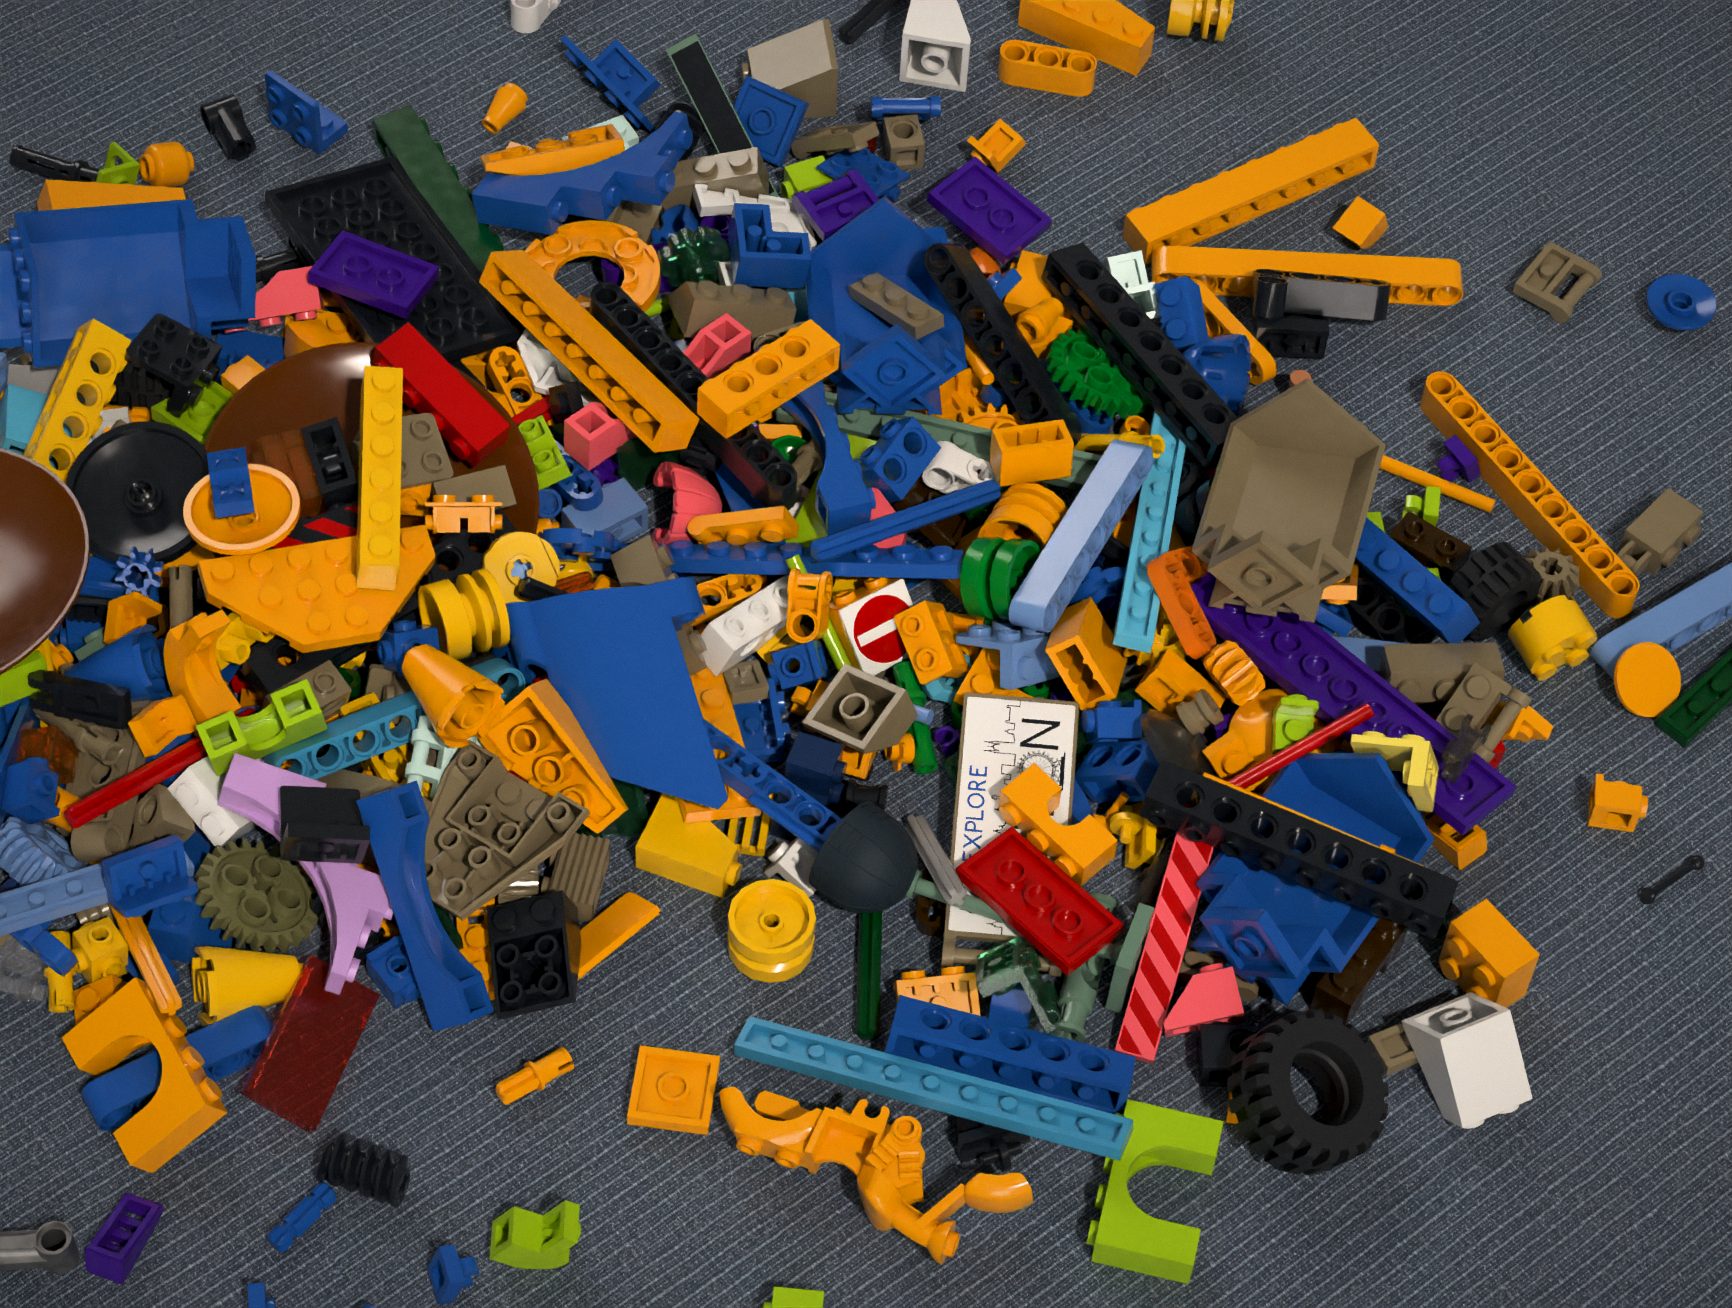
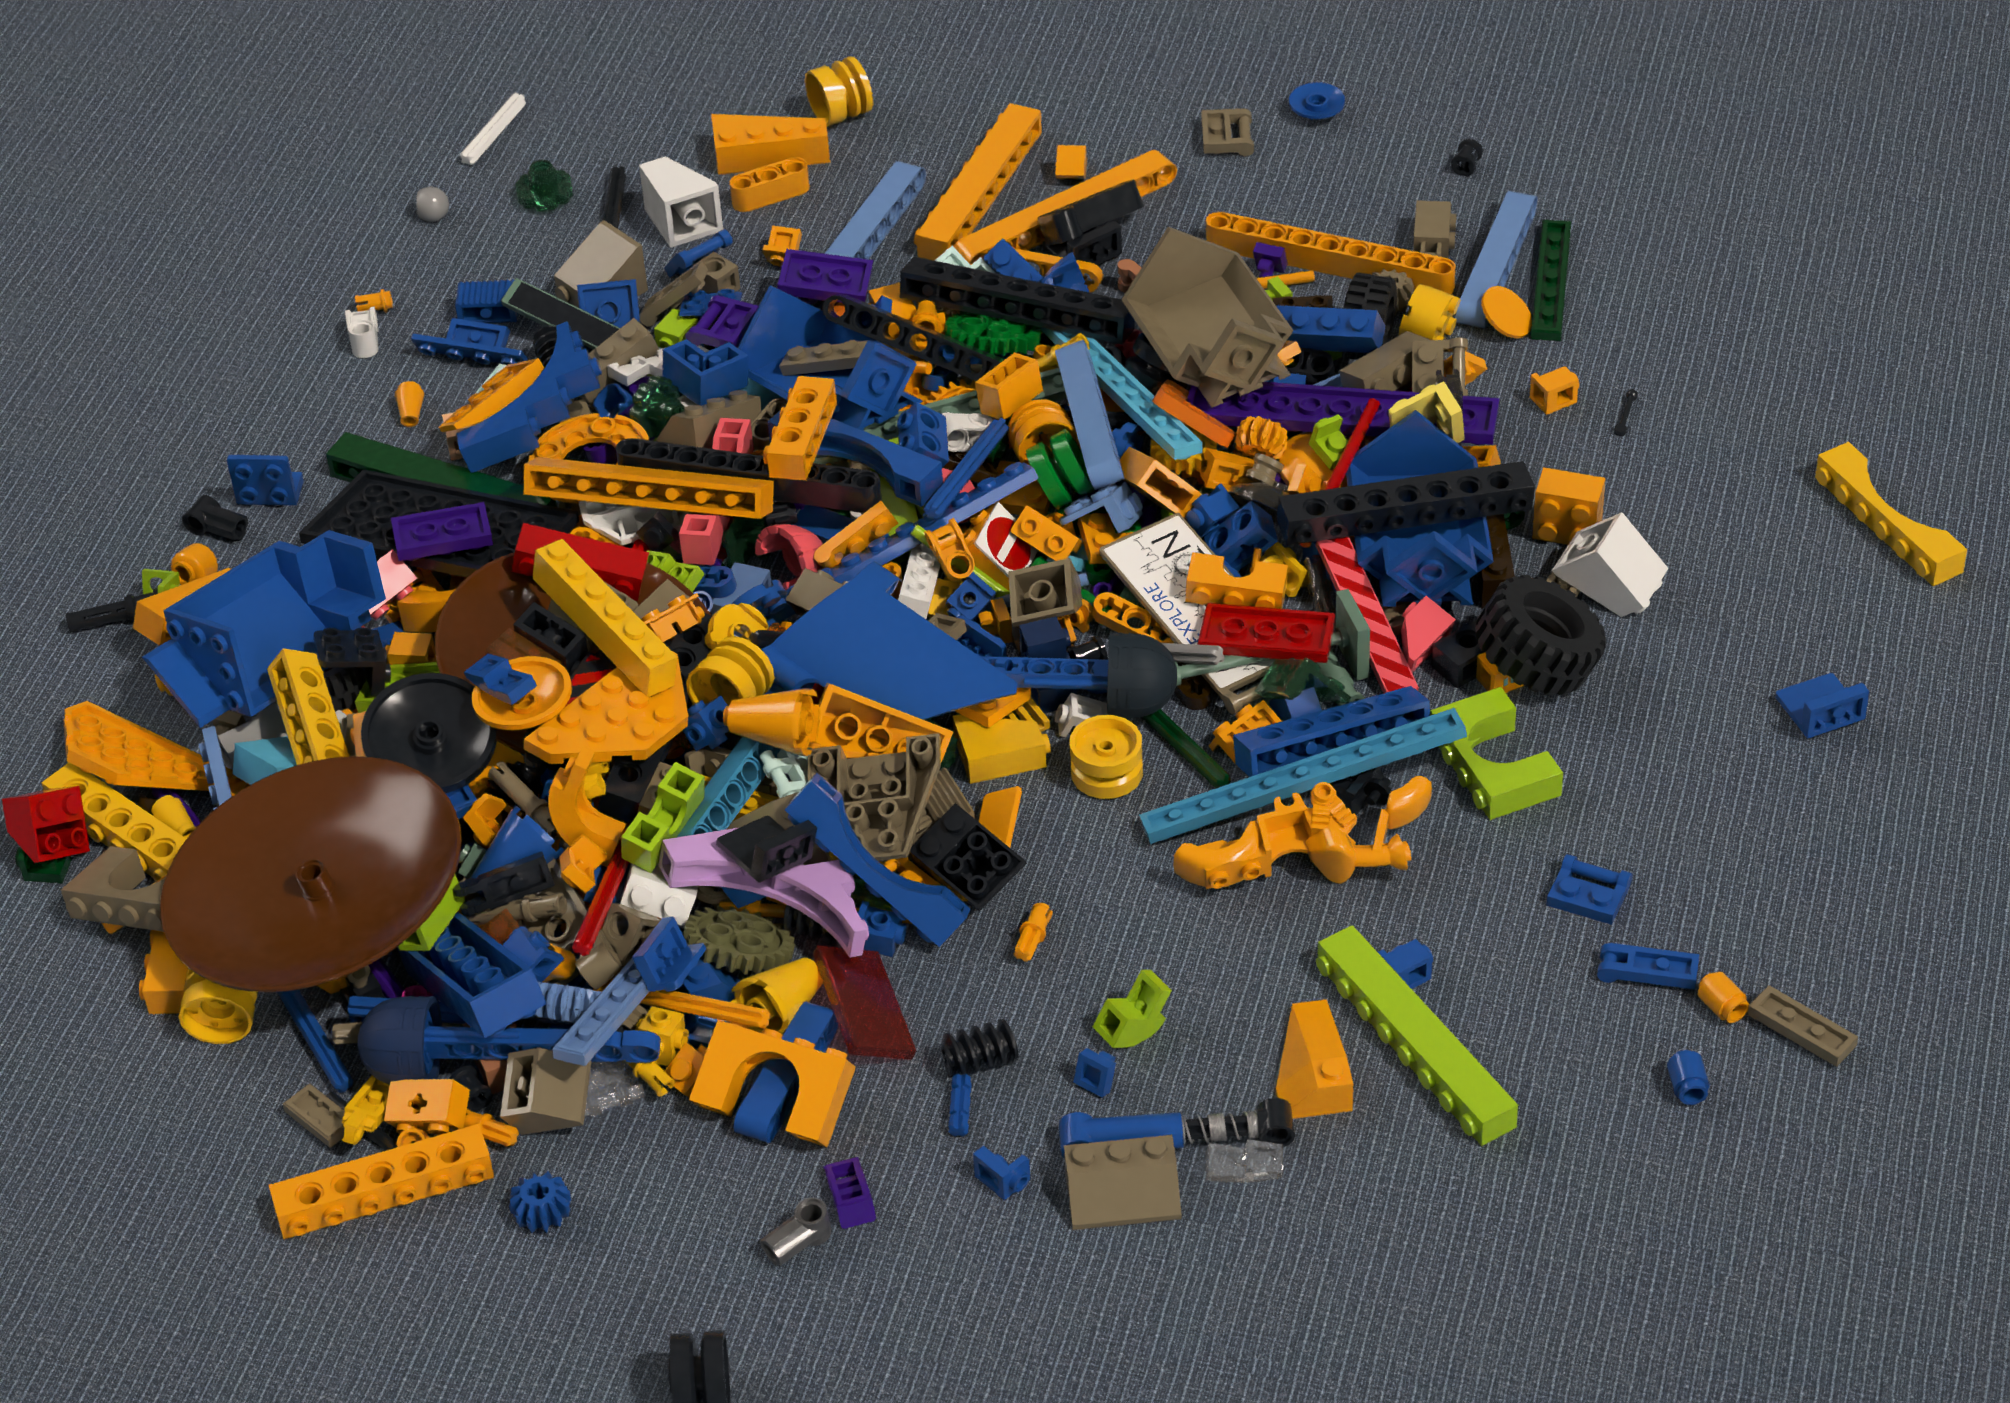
camera: 30 degrees left, 10 degrees down
(145, 563) = (467, 778): blue gear -> none
(662, 29) = (483, 302): none -> blue brick
(673, 1090) = (1132, 884): light orange plate -> none
(919, 776) = (1130, 610): none -> light orange beam
(1115, 168) = (879, 211): none -> medium blue beam

